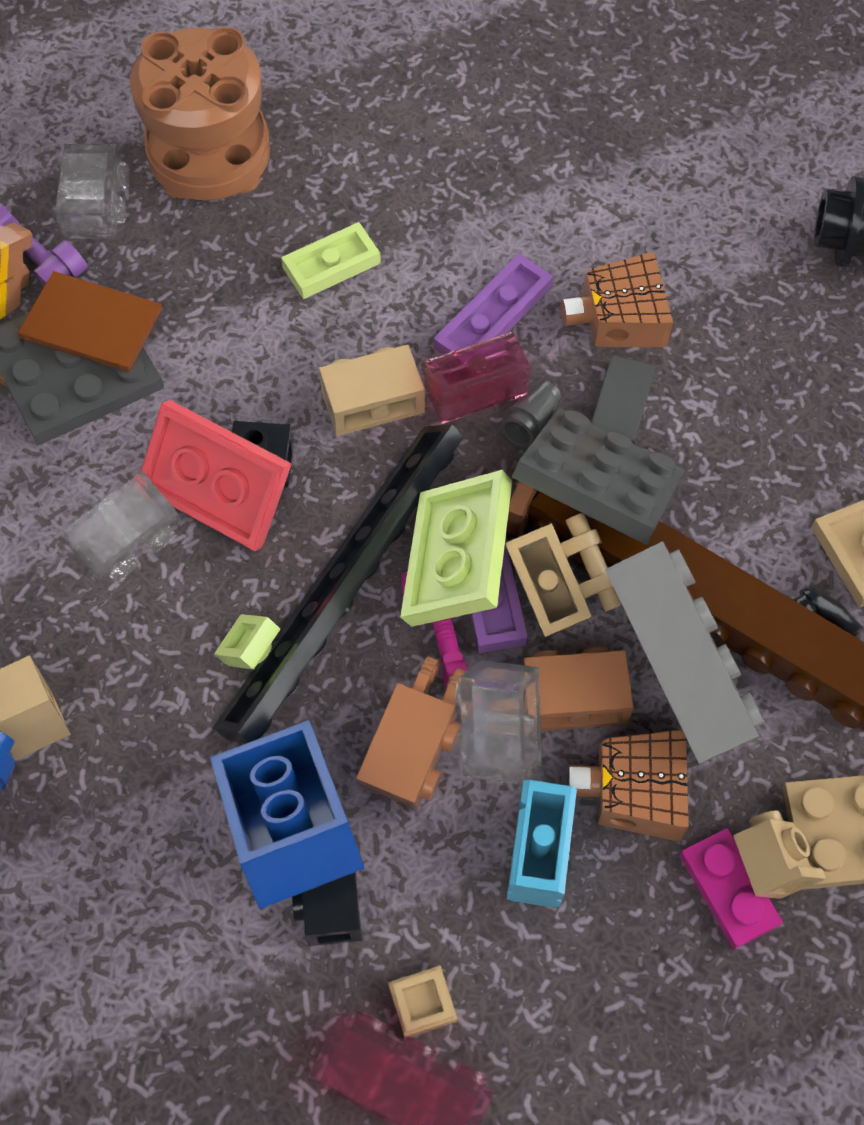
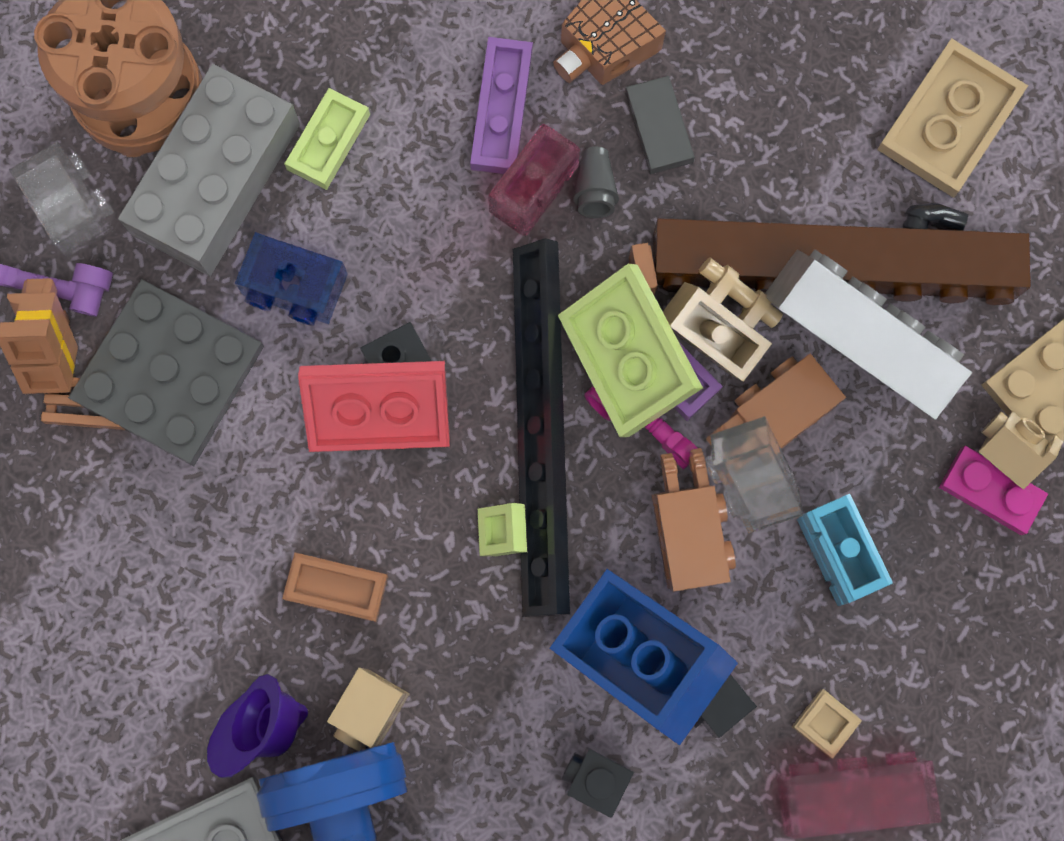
camera: 35 degrees left, 15 degrees up
(75, 606) = (335, 587): none -> nougat tile
(90, 321) = (162, 328): dark orange piece -> none
(122, 528) = (333, 500): clear brick -> none
(169, 907) = (596, 781): none -> black brick
(218, 230) = (210, 170): none -> light grey brick
(221, 345) = (275, 261): none -> clear blue brick
(372, 389) = (449, 241): tan brick -> none
(600, 474) = (697, 211): dark grey plate -> none
(639, 784) = (881, 453): nougat torso -> none

